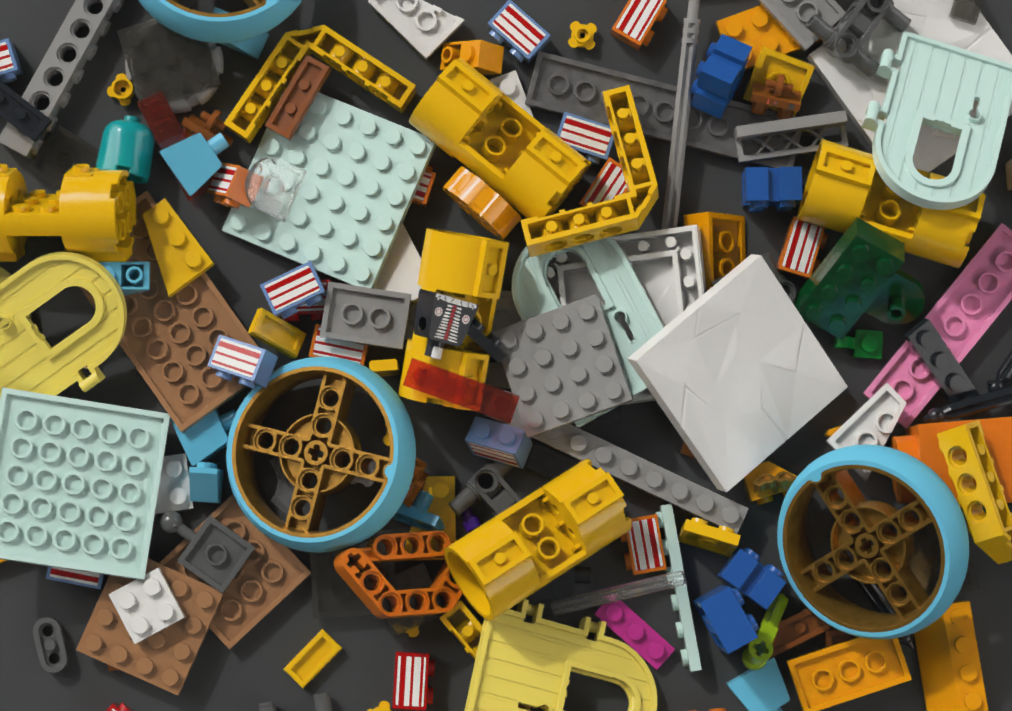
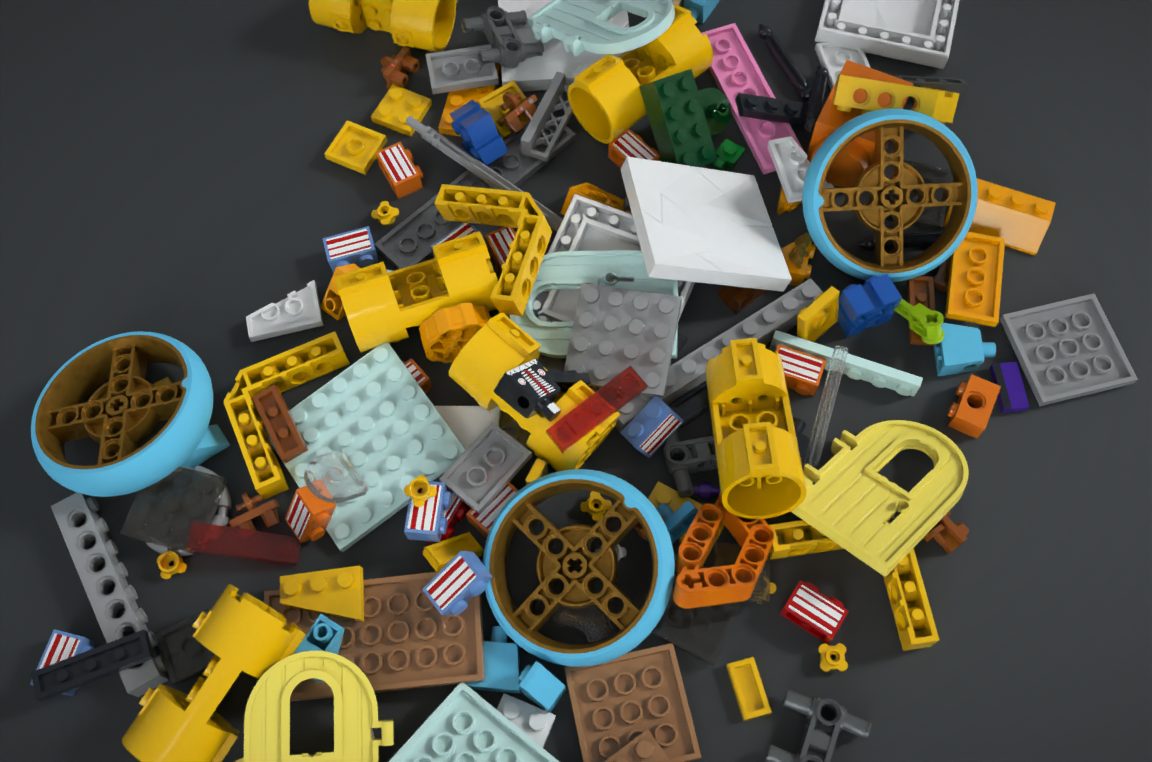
camera: 60 degrees left, 20 degrees down
(127, 147) = (211, 577): teal cylinder -> none
(194, 159) = (266, 531): medium azure torso -> none
(213, 552) = (606, 716): dark grey plate -> none
(297, 269) = (416, 484): none -> yellow plate
(635, 632) = (860, 416): dark pink plate -> none
(725, 618) = (896, 327): blue brick -> none
(771, 188) = (579, 146): blue brick -> none

